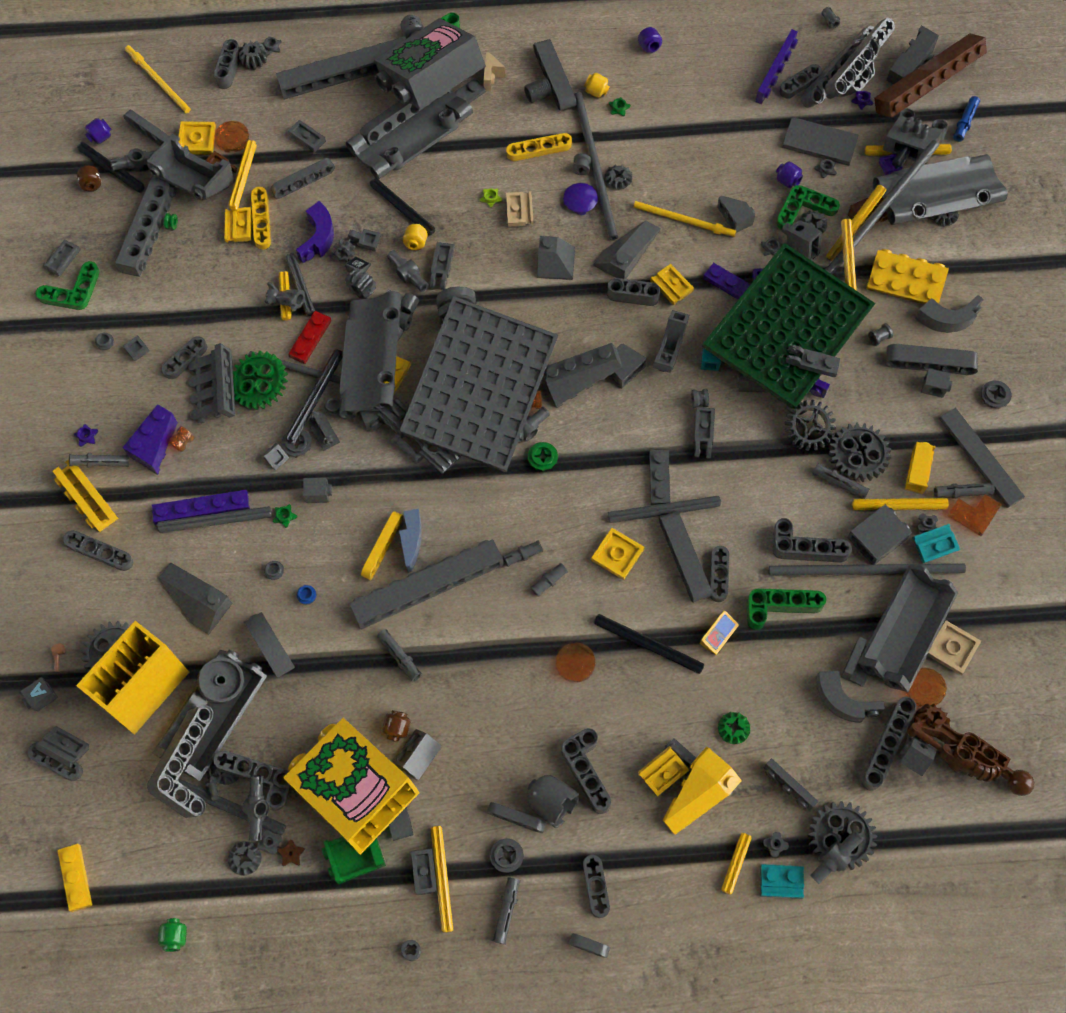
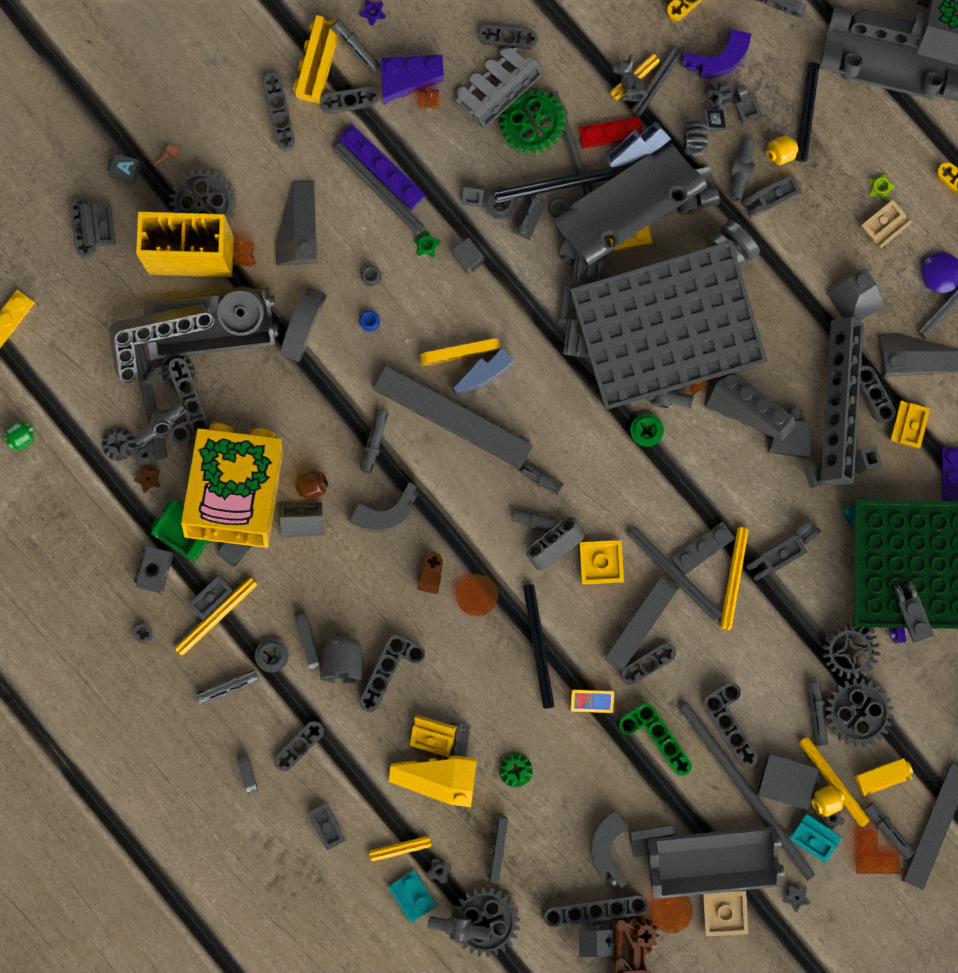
camera: 50 degrees right, 15 degrees up
(121, 504) = (354, 92): none -> dark grey beam
(180, 649) = (244, 253): none -> clear orange wheel
(334, 322) = (638, 146): none -> sand blue slope
(378, 908) = (155, 582): none -> dark grey brick
(462, 696) = (385, 520): none -> dark grey arch
(536, 685) = (430, 577): none -> reddish brown piece
(579, 575) = (555, 543): none -> dark grey beam
(675, 339) = (842, 402): none -> dark grey brick
(678, 910) = (326, 826): none -> dark grey plate
(698, 471) = (734, 578): none -> yellow axle
(914, 514) = (827, 801): none -> yellow head
(973, 593) = (793, 892): none -> dark grey plate

